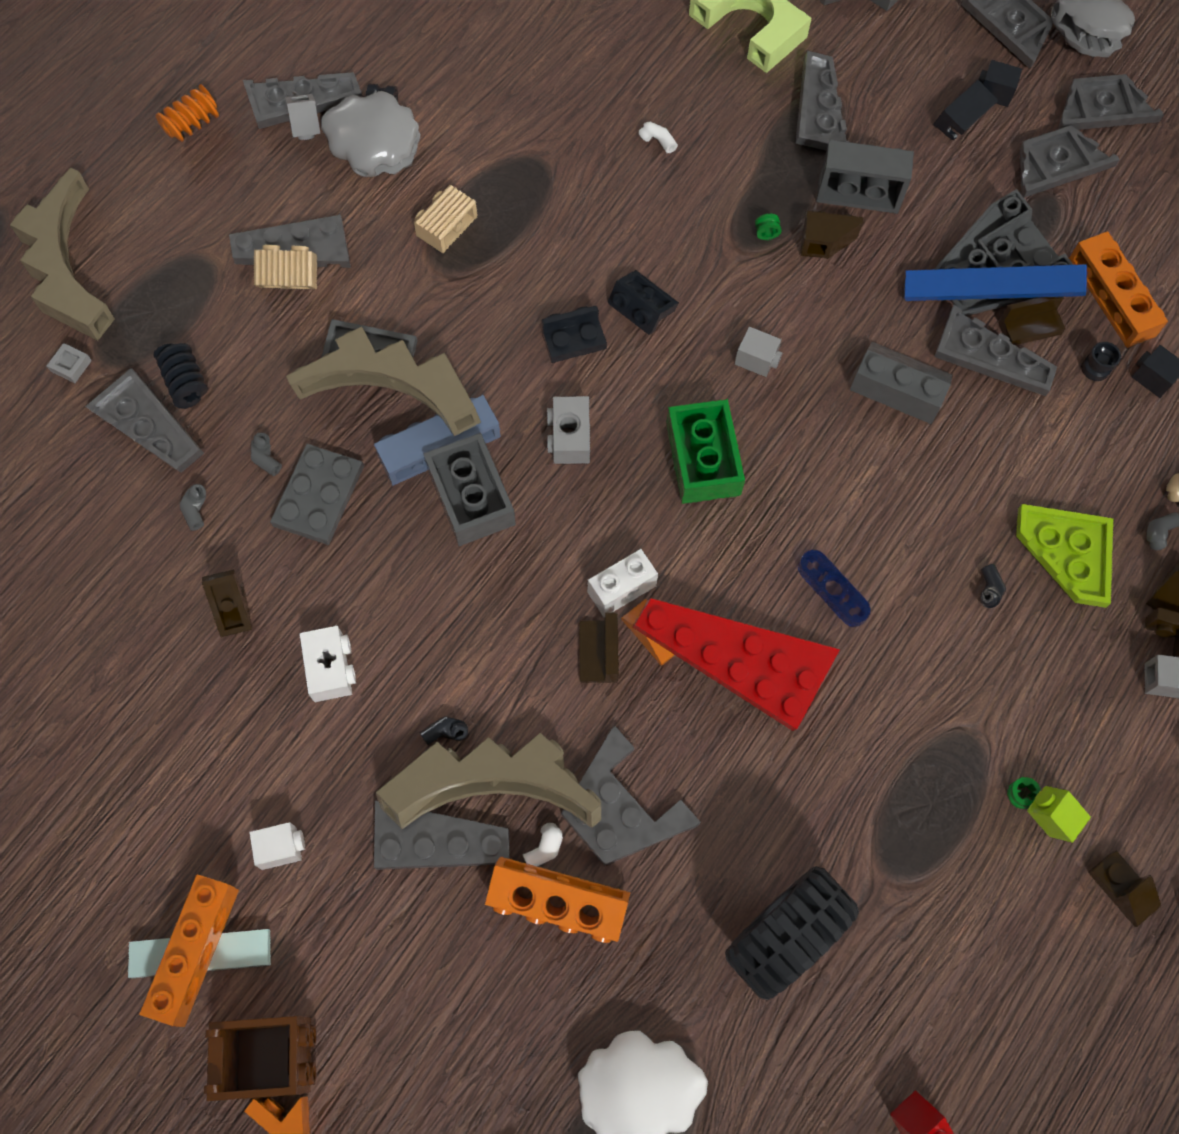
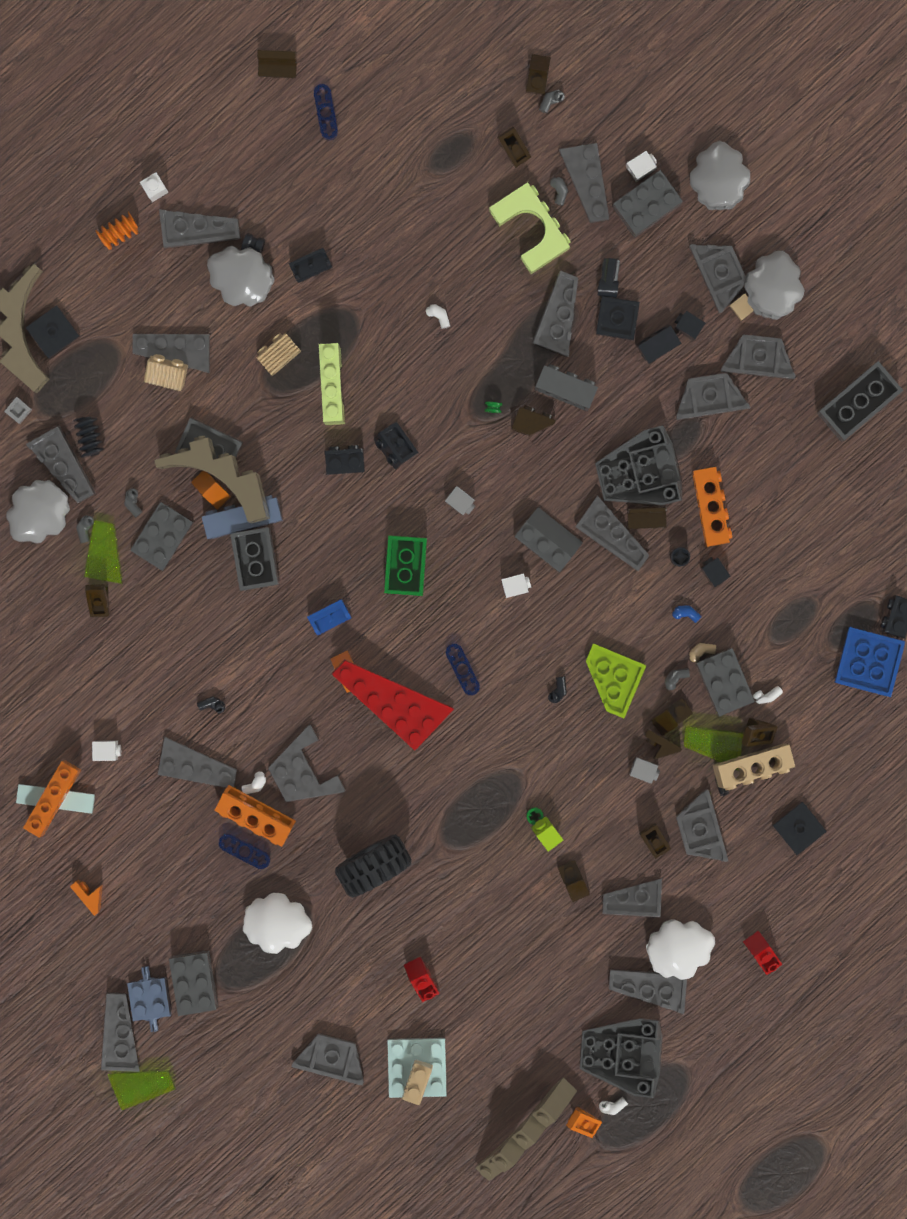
camera: 15 degrees right, 20 degrees up
(111, 256) = (52, 332): none -> black plate
(113, 491) = (37, 512): none -> light grey piece
(228, 537) = (103, 554): none -> clear neon green wing
(231, 57) = (154, 187): none -> white brick
(260, 1058) = (78, 860): reddish brown container -> none
(302, 116) = (195, 252): light grey brick -> none
(319, 647) = (144, 658): white brick -> none
(382, 411) = (210, 489): none -> orange slope
(466, 107) = (310, 265): none -> black hinge
(489, 769) = (257, 742): dark tan arch -> none
(528, 213) = (331, 384): none -> yellowish green arch
(573, 446) = (328, 541): light grey brick -> none
(579, 968) = (234, 840): none -> clear blue beam
(599, 650) = (311, 676): dark brown panel -> none
(604, 550) = (329, 617): none -> blue hinge
(622, 582) = (334, 639): white brick -> none
(873, 56) = (608, 282): none -> black piece
(876, 448) = (516, 585): none -> white brick
(900, 94) = (617, 318): none -> black plate
(996, 283) = (626, 490): blue tile -> none
(1057, 55) = (741, 307): none -> tan tile
(1141, 434) = (686, 611): none -> blue arm

